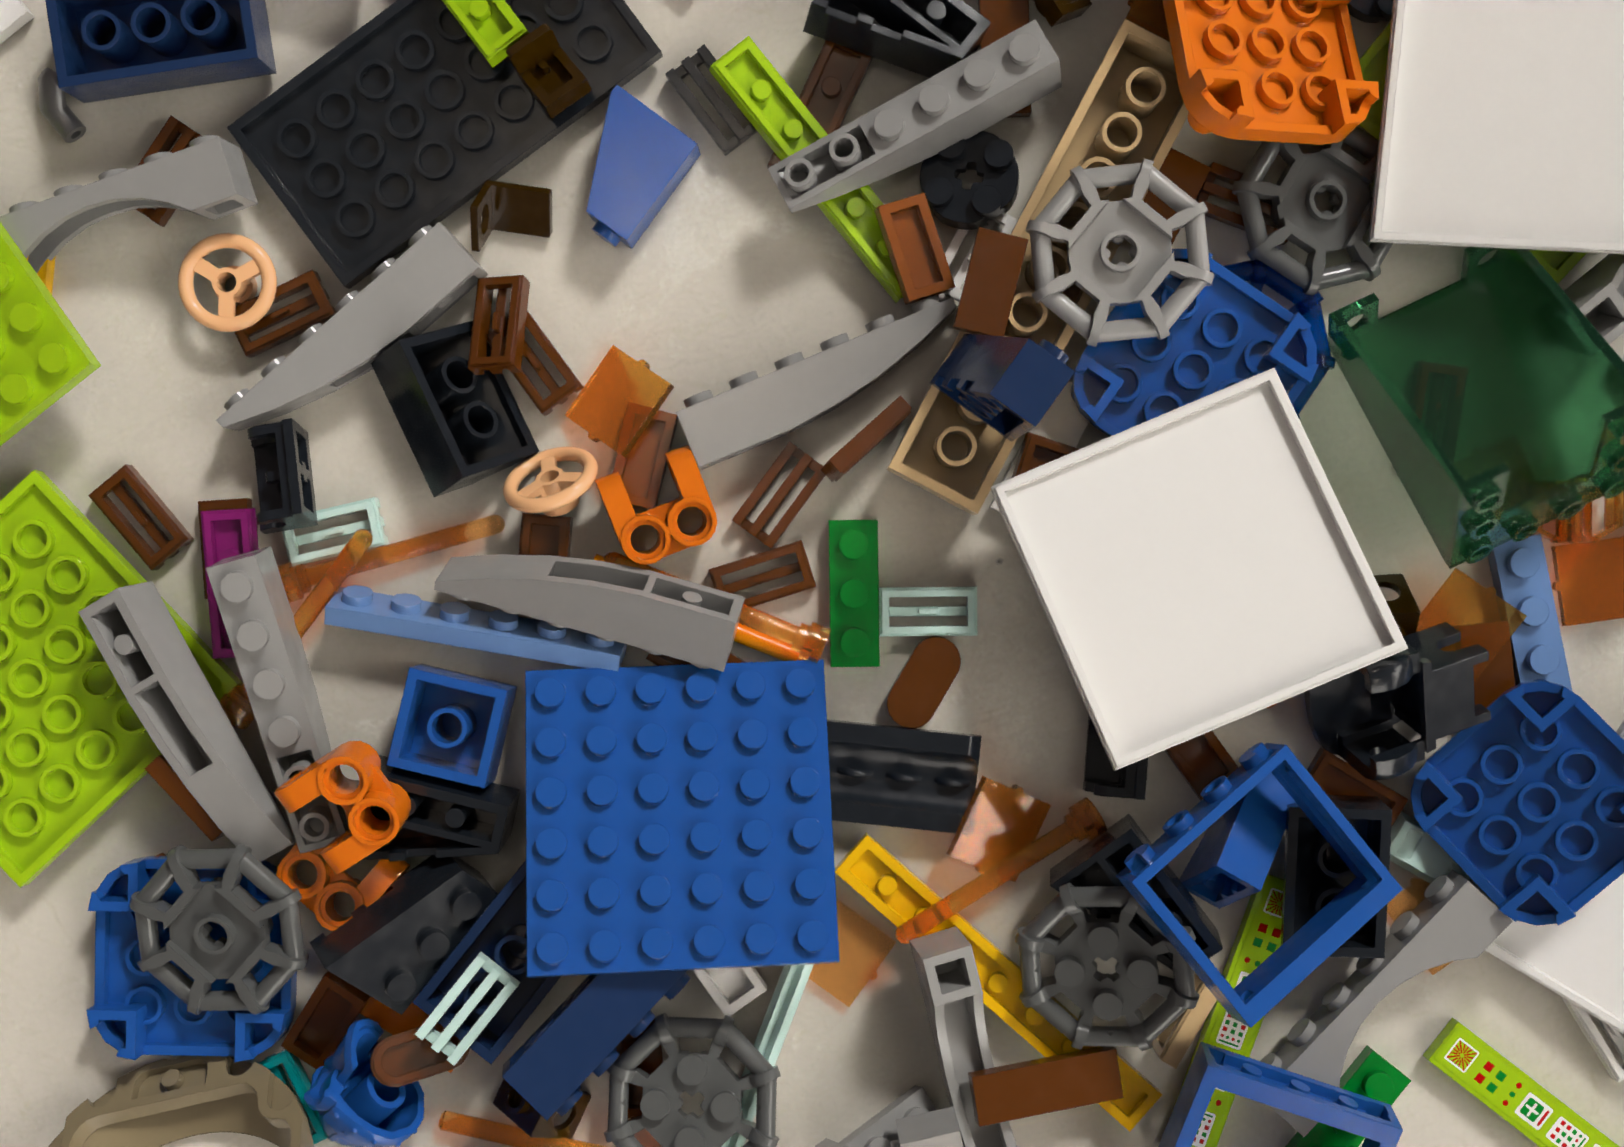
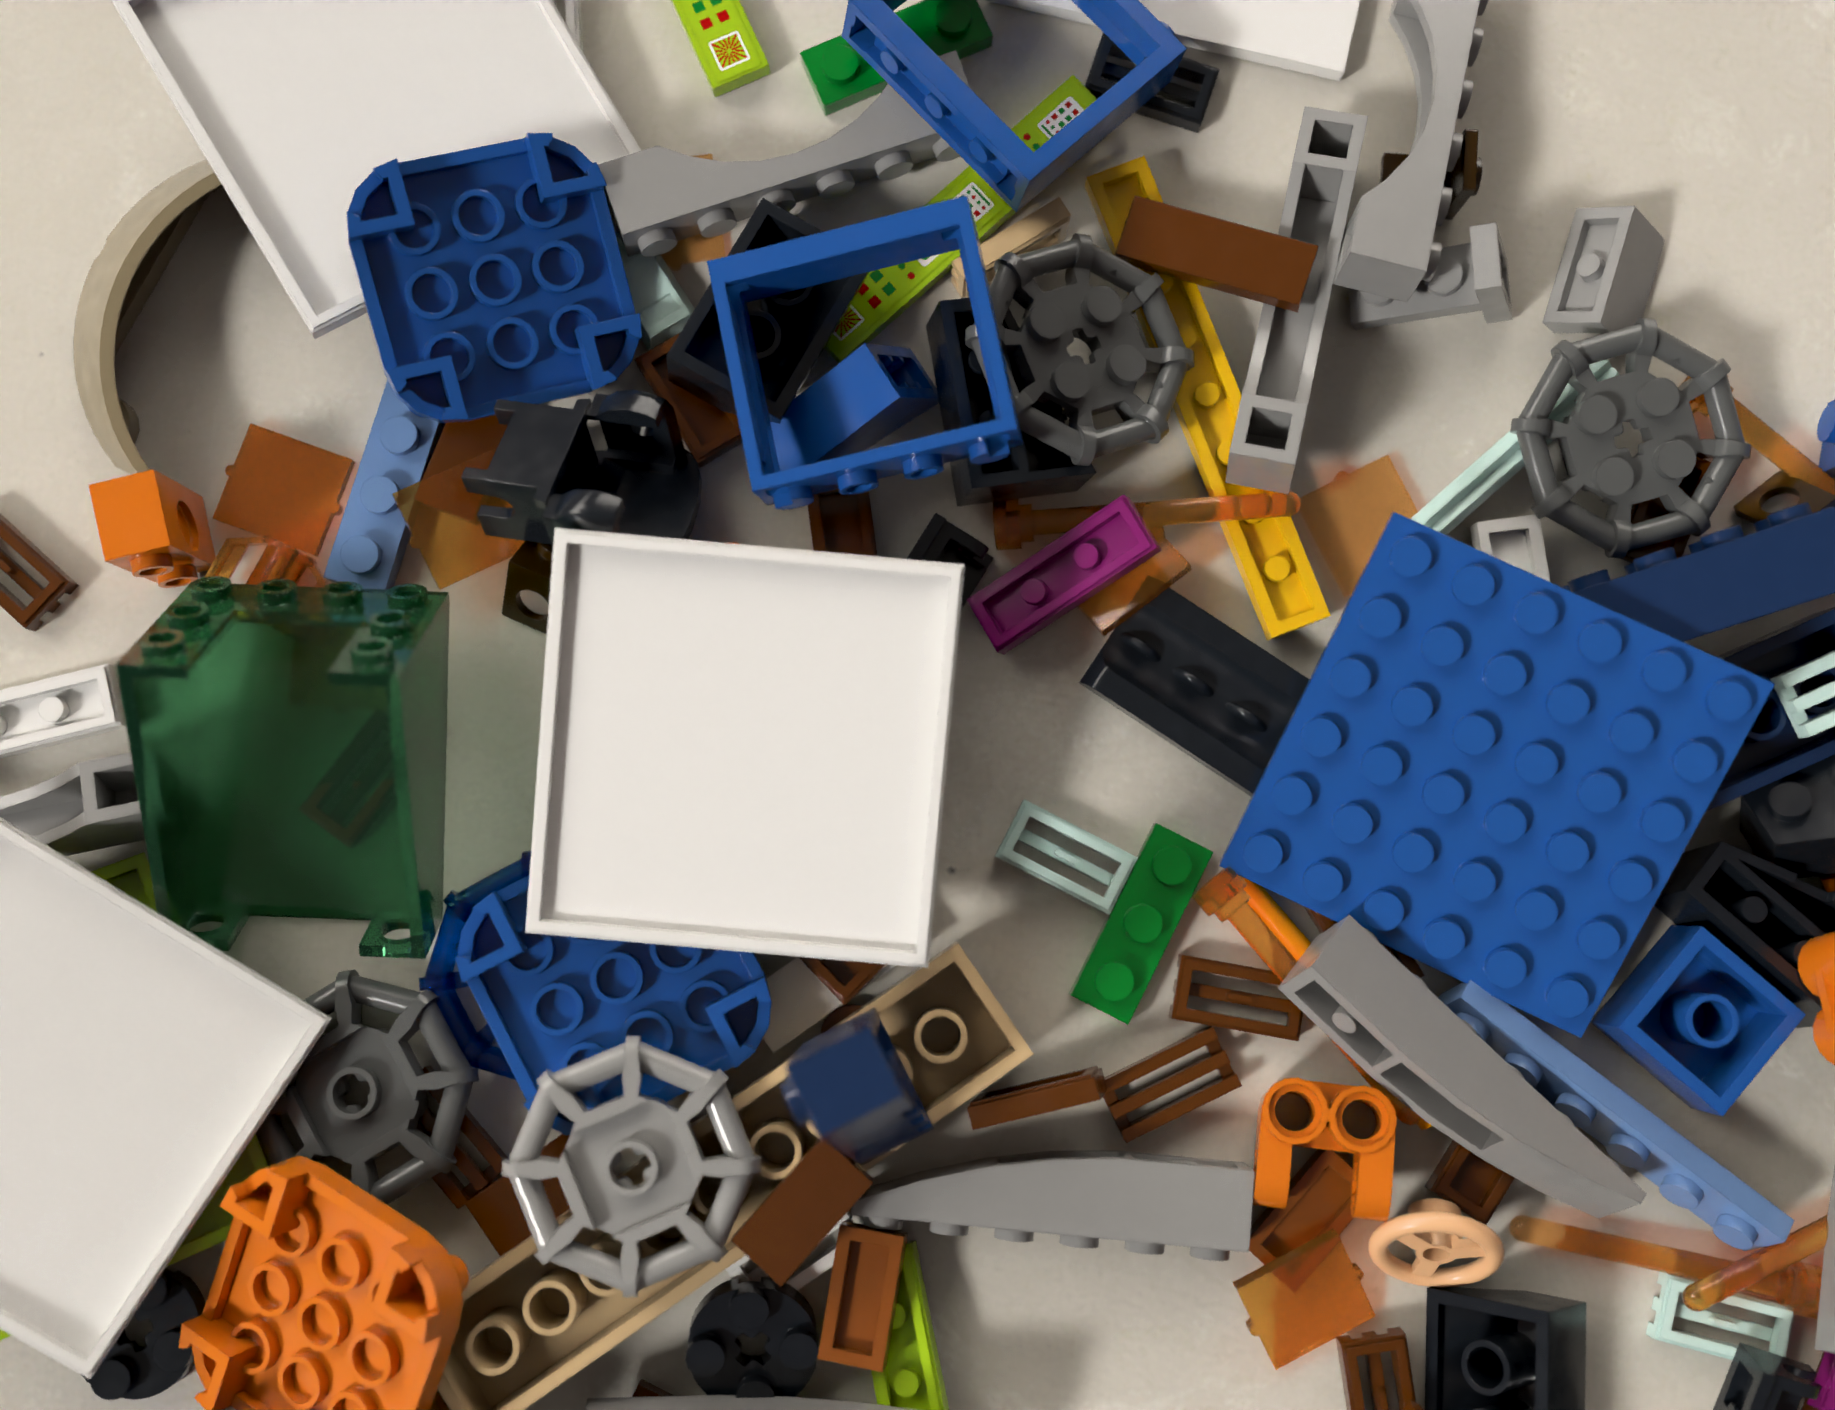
camera: 150 degrees left, 5 degrees down
(923, 682) = (1113, 778): reddish brown tile -> none
(1032, 803) = (1064, 574): none -> magenta tile

